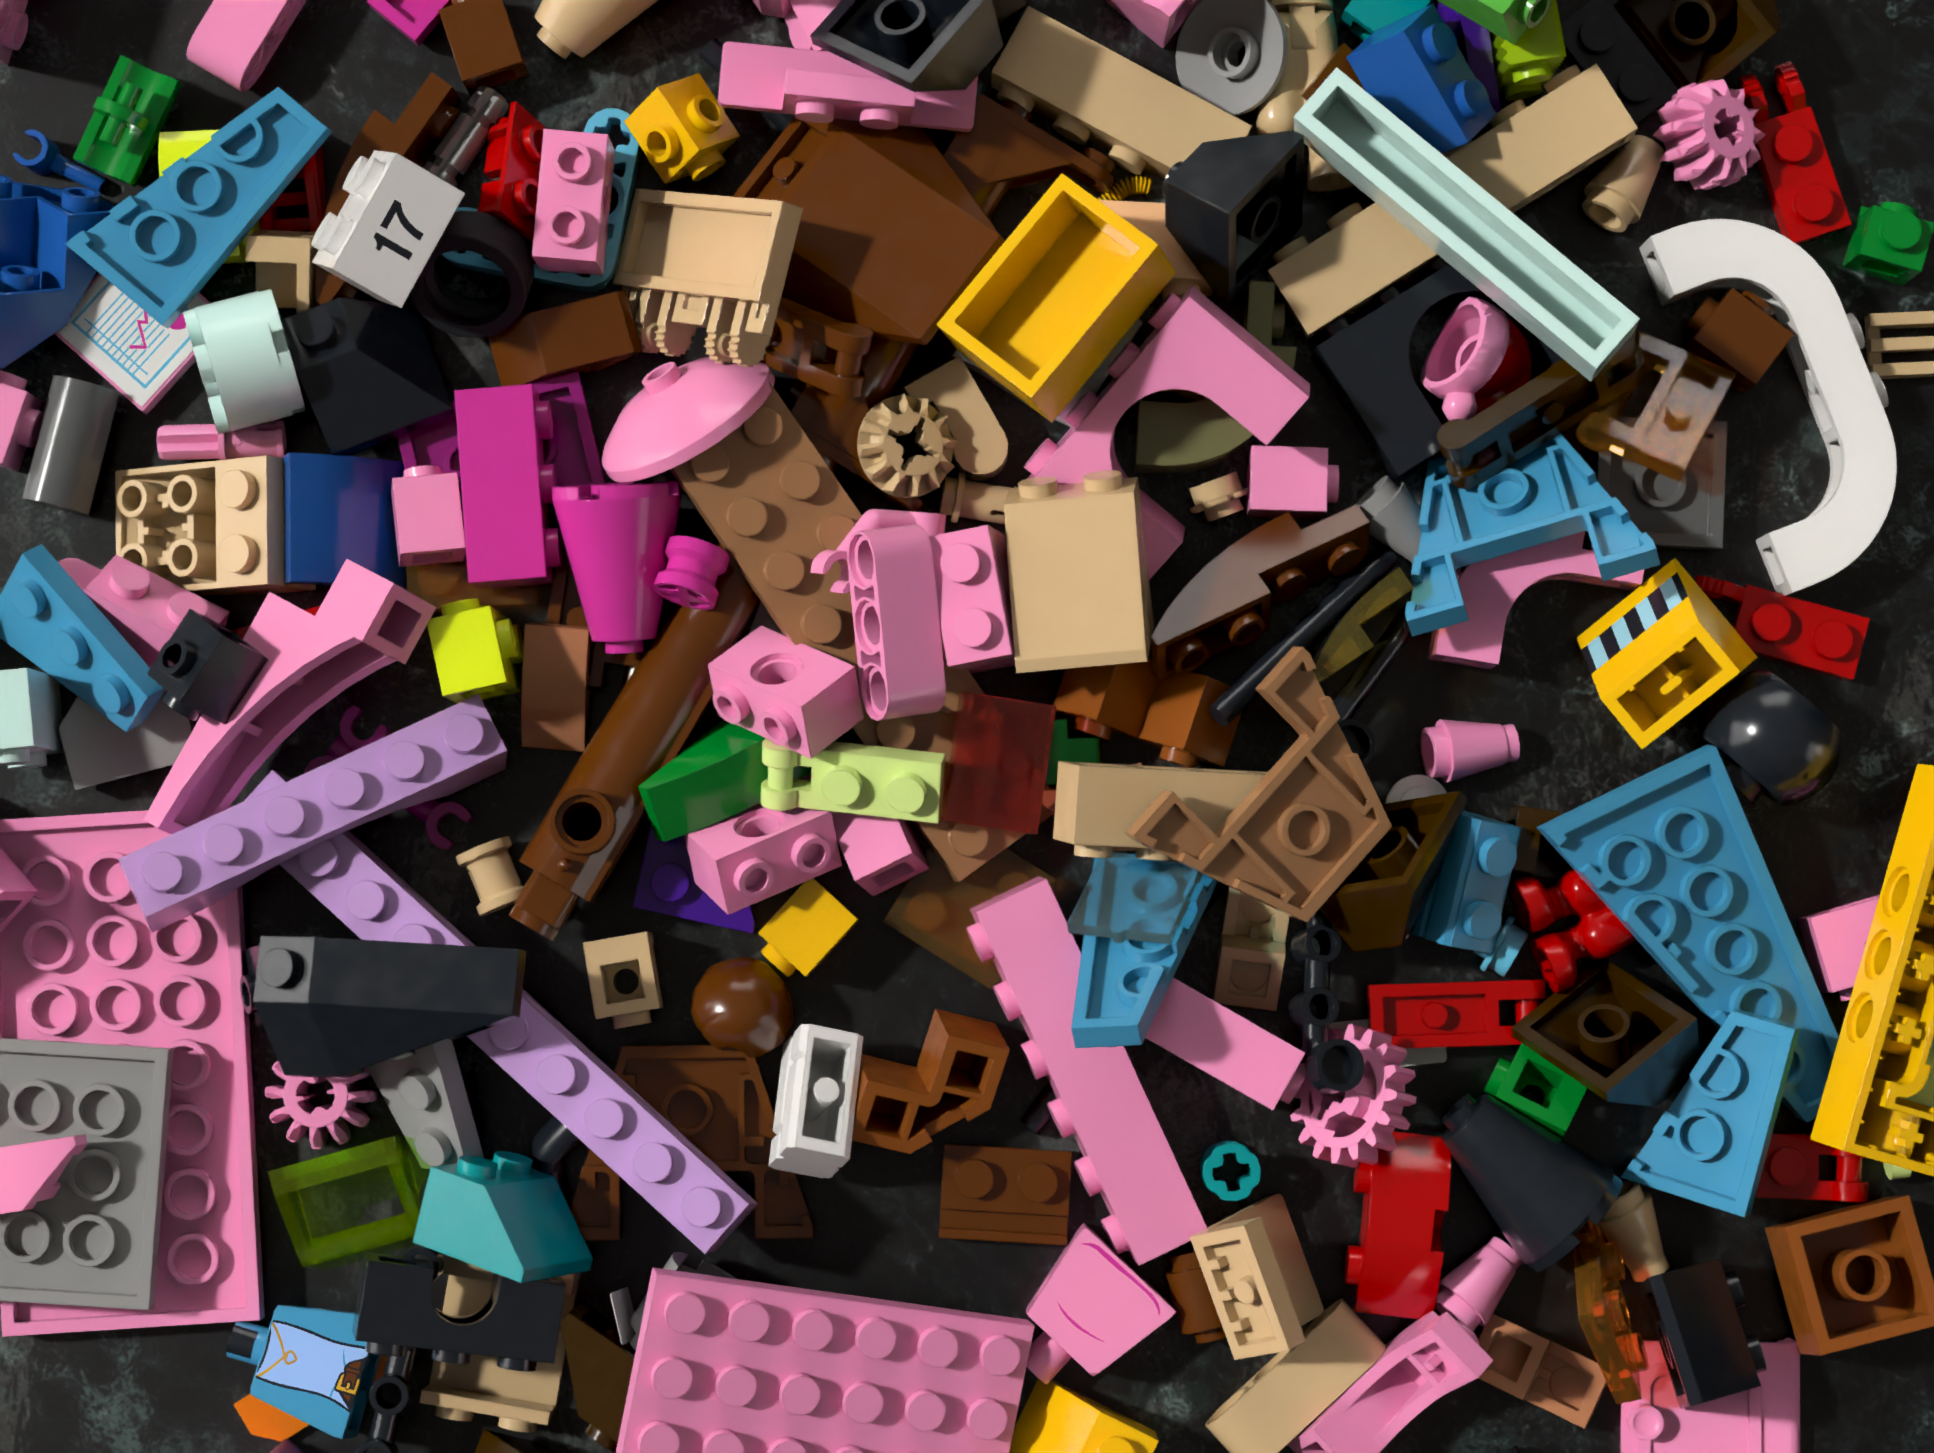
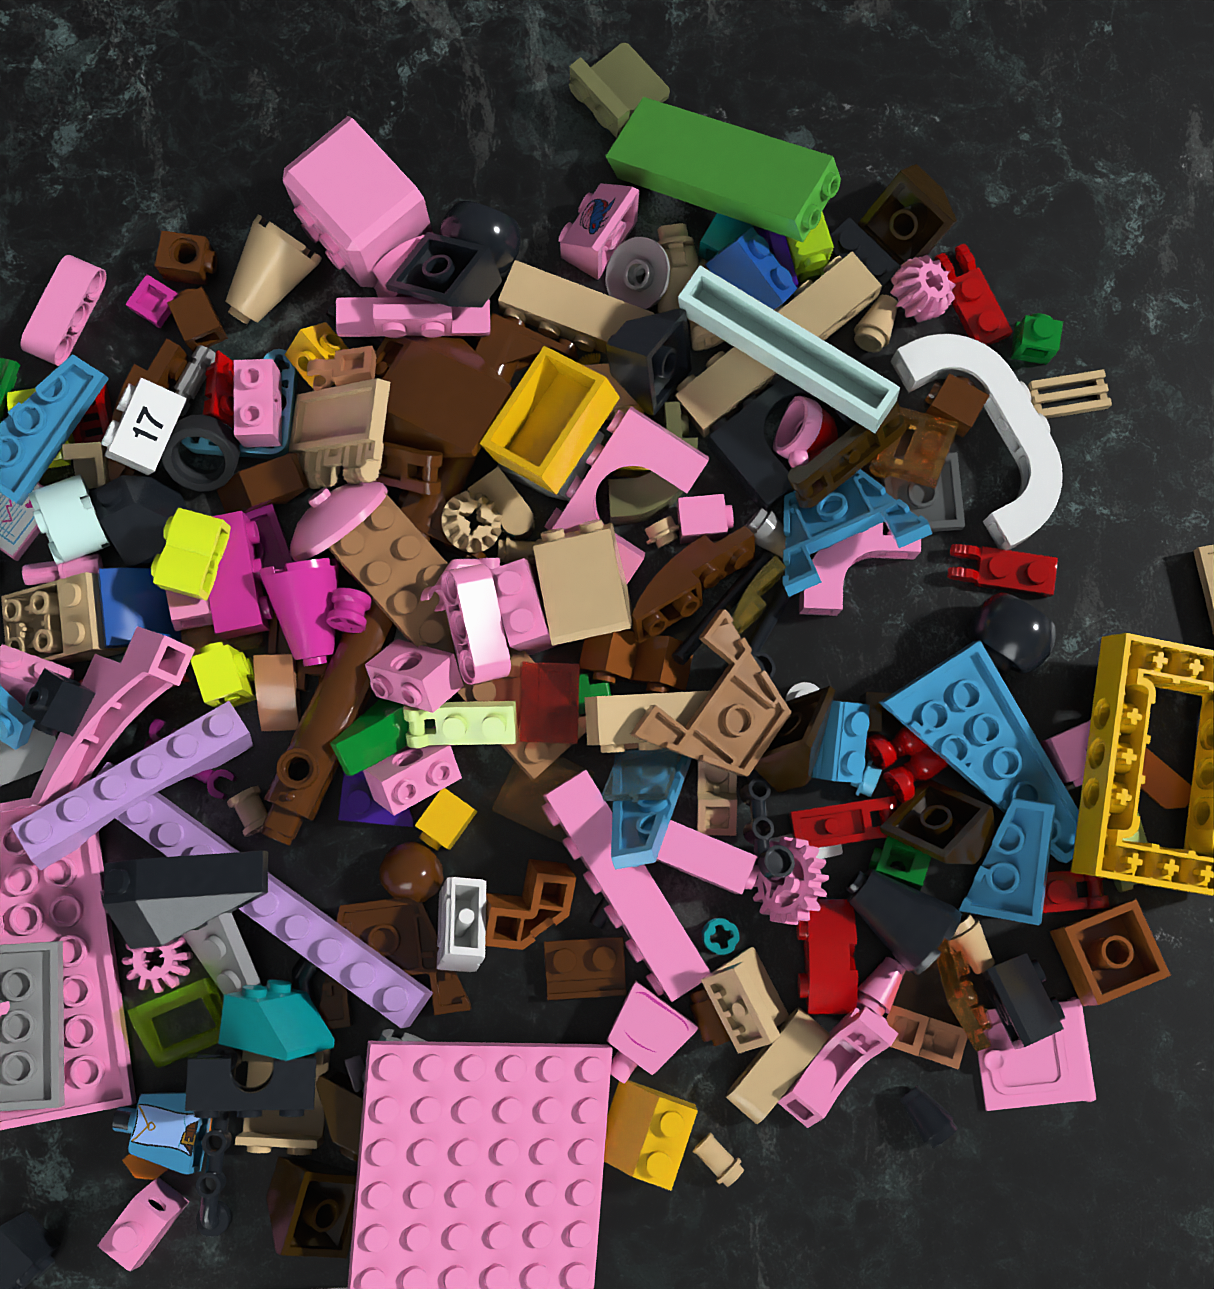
camera: 10 degrees left, 5 degrees down
(444, 450) = (190, 554): none -> neon yellow brick
(604, 962) = (324, 855): tan brick -> none
(730, 166) = (346, 368): none -> nougat plate
(879, 850) = (483, 765): bright pink brick -> none
(1466, 748) = (828, 663): bright pink cone -> none
(1661, 653) = (938, 591): yellow slope -> none

